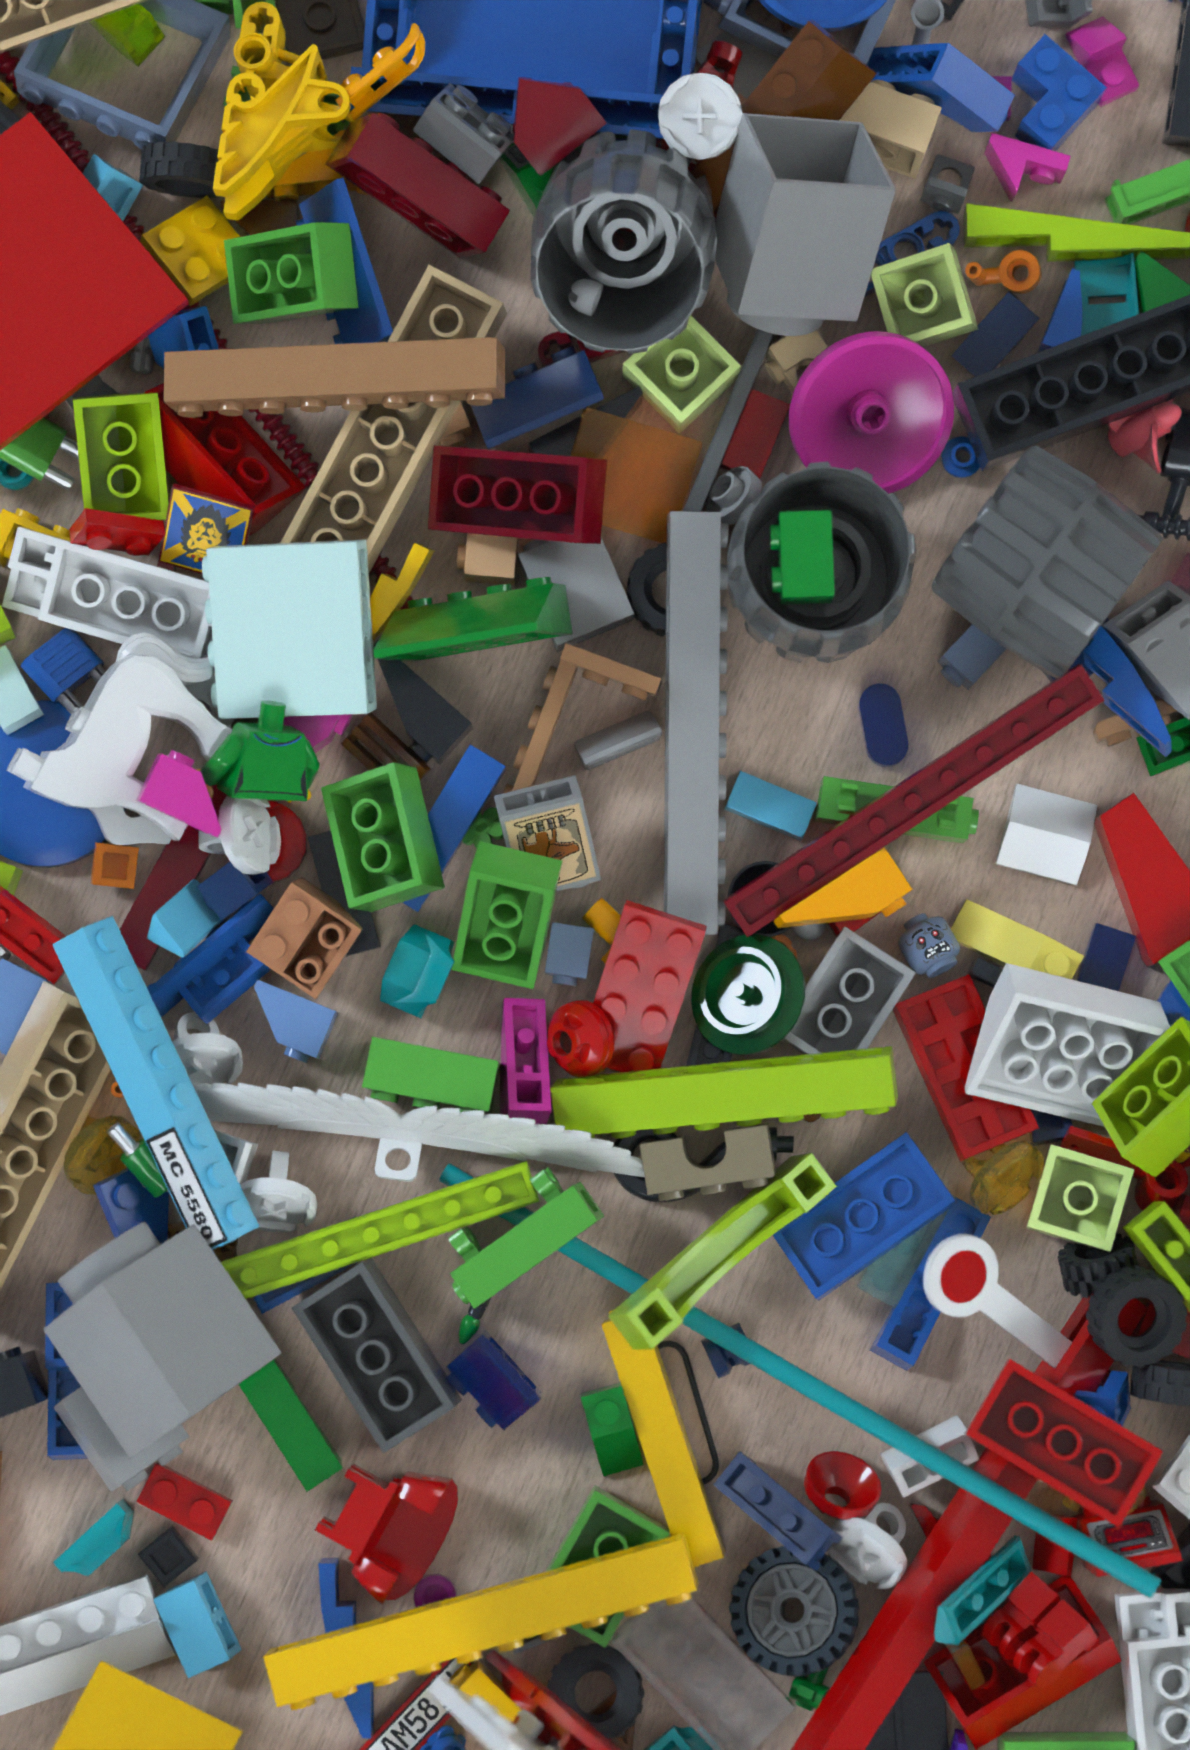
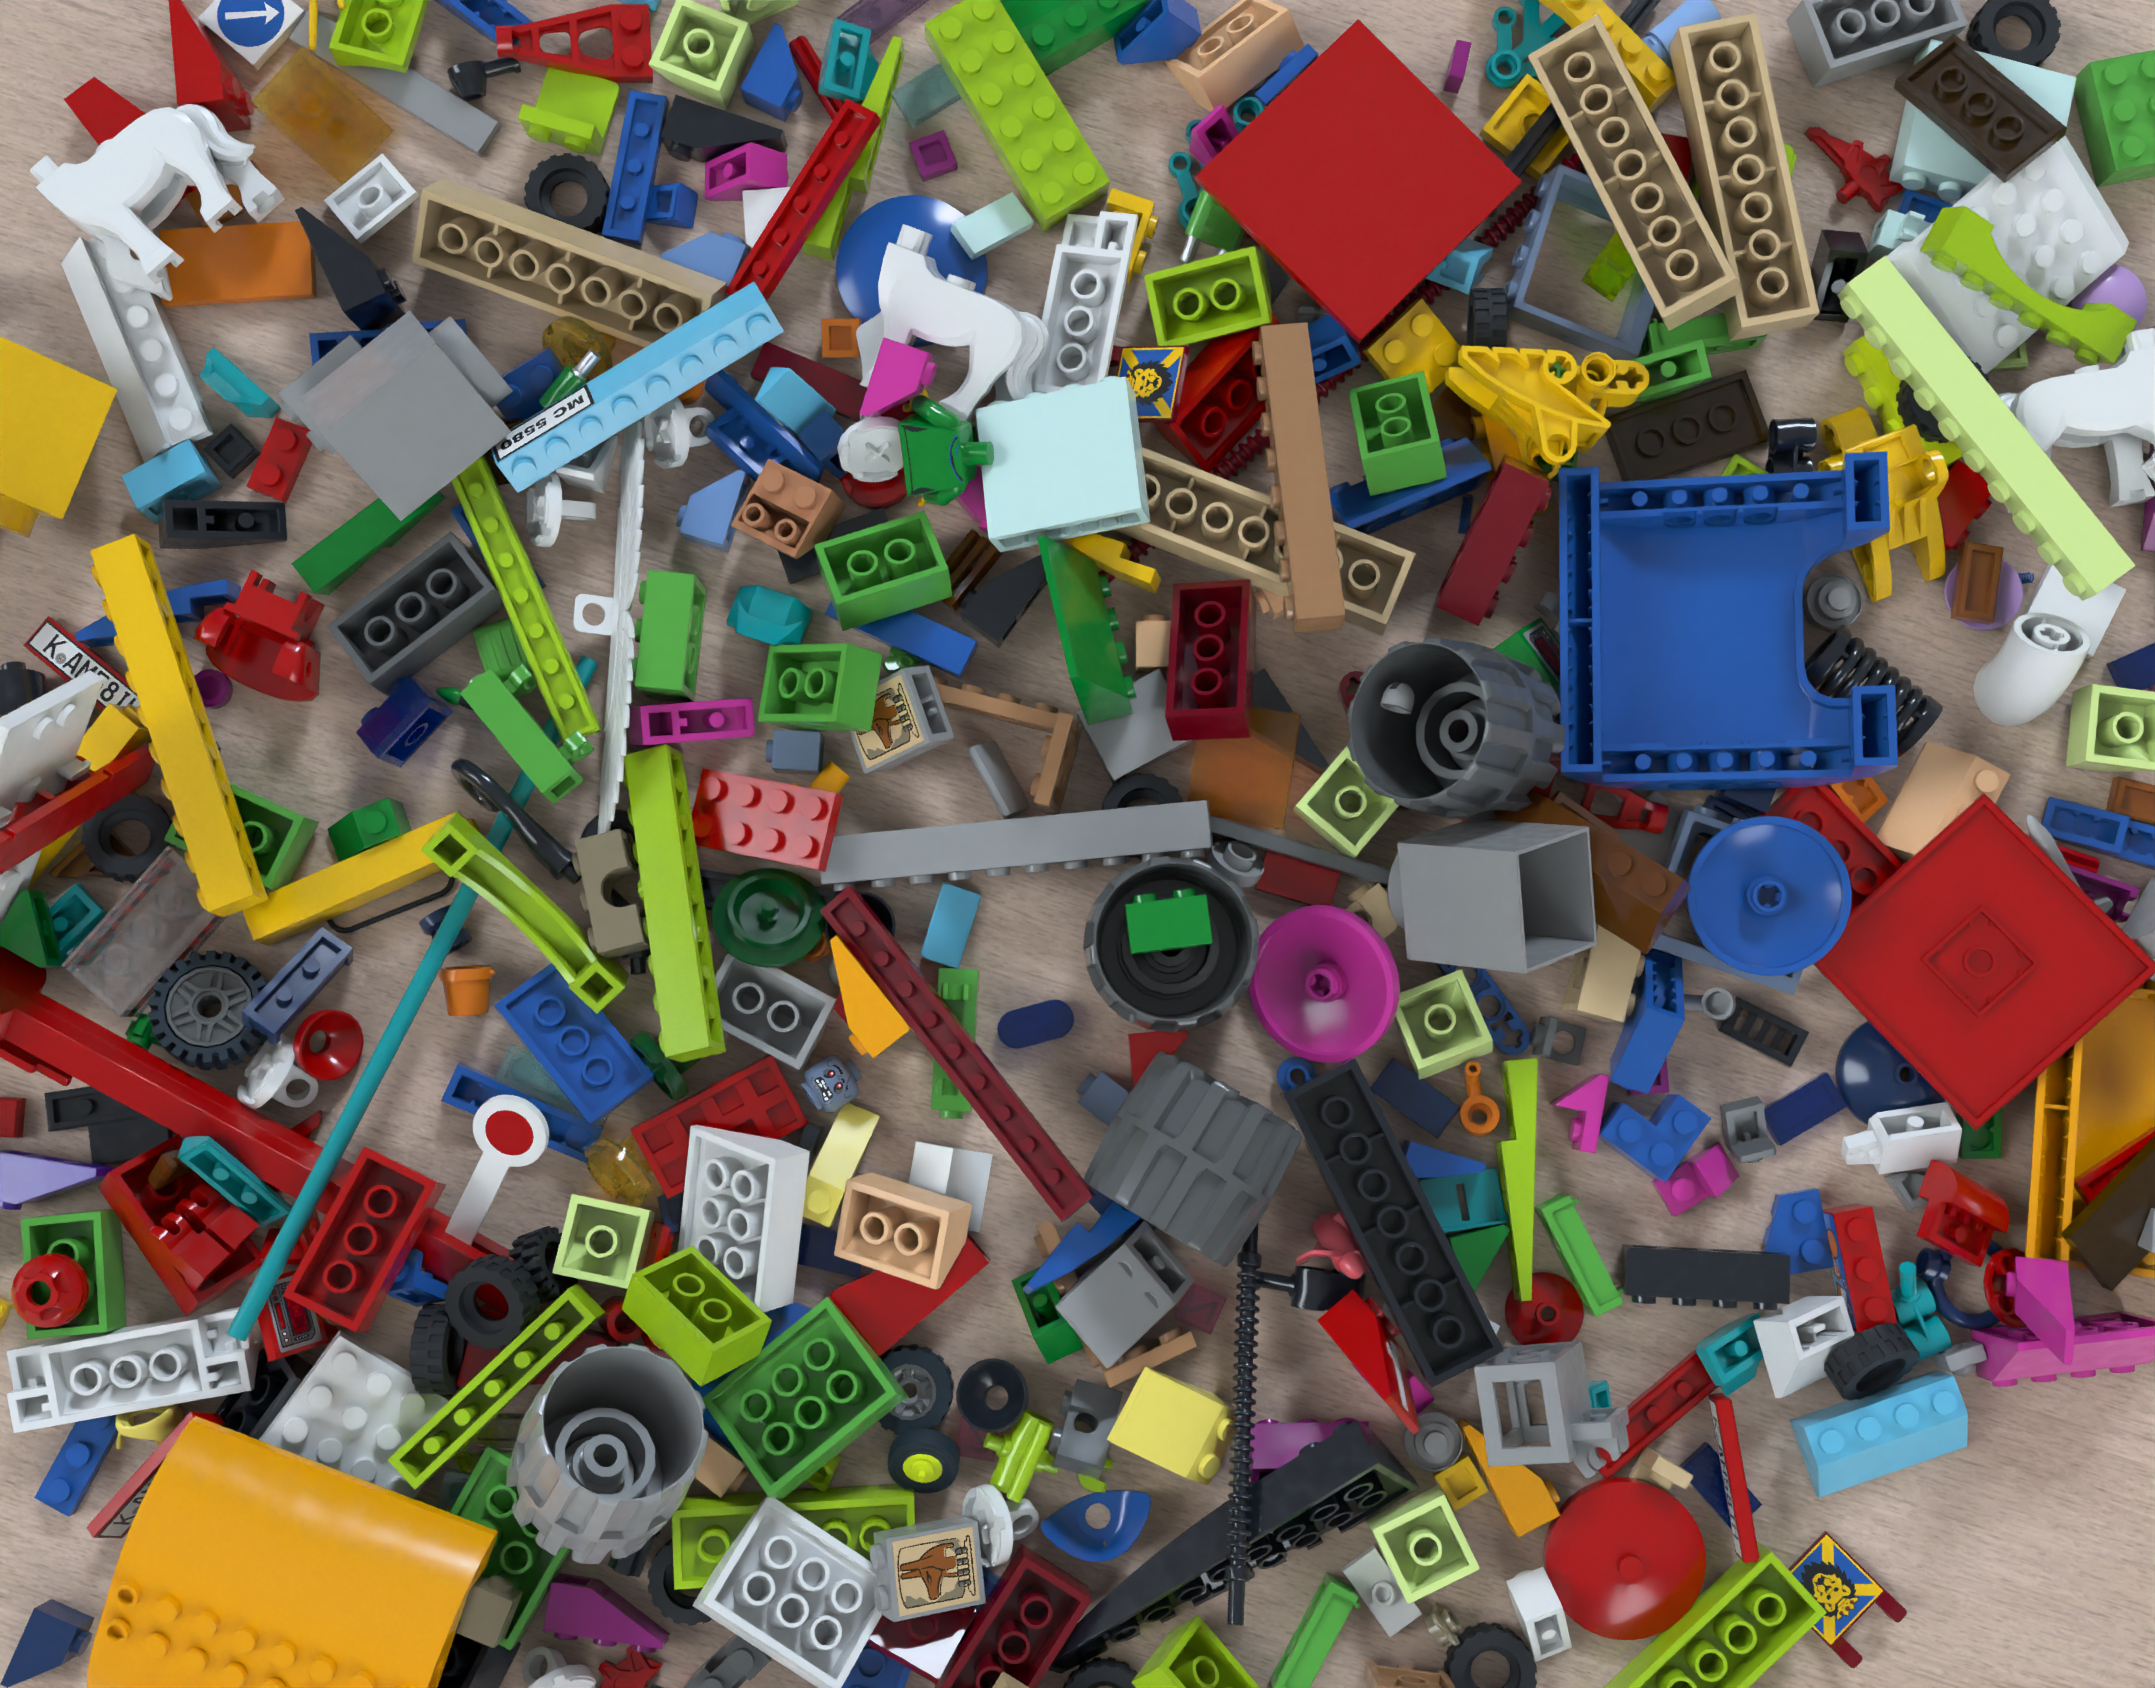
camera: 90 degrees right, 0 degrees up
(63, 666) = (1017, 273): blue piece -> none
(117, 532) = (1141, 314): red plate -> none
(252, 1572) = (219, 523): none -> black slope
(372, 214) = (1464, 512): none -> blue leg
(388, 64) = (1603, 495): light orange piece -> none
(423, 1265) = (500, 648): none -> bright green piece
(464, 131) = (1545, 573): dark grey slope -> none
(539, 397) = (1306, 673): dark blue slope -> none
(552, 121) = (1564, 653): dark red slope -> none
(588, 1283) = (534, 836): none -> black plant
(590, 1038) = (716, 768): red piece -> none
(700, 116) = (1583, 789): white tile -> none
(794, 1330) = (466, 989): none -> orange piece
(907, 1116) = (665, 1070): none -> dark green tile
(926, 610) = (1146, 1045): none -> red slope
(947, 1437) = (373, 1128): white brick -> none
(1092, 879) = (901, 1229): none -> light nougat slope

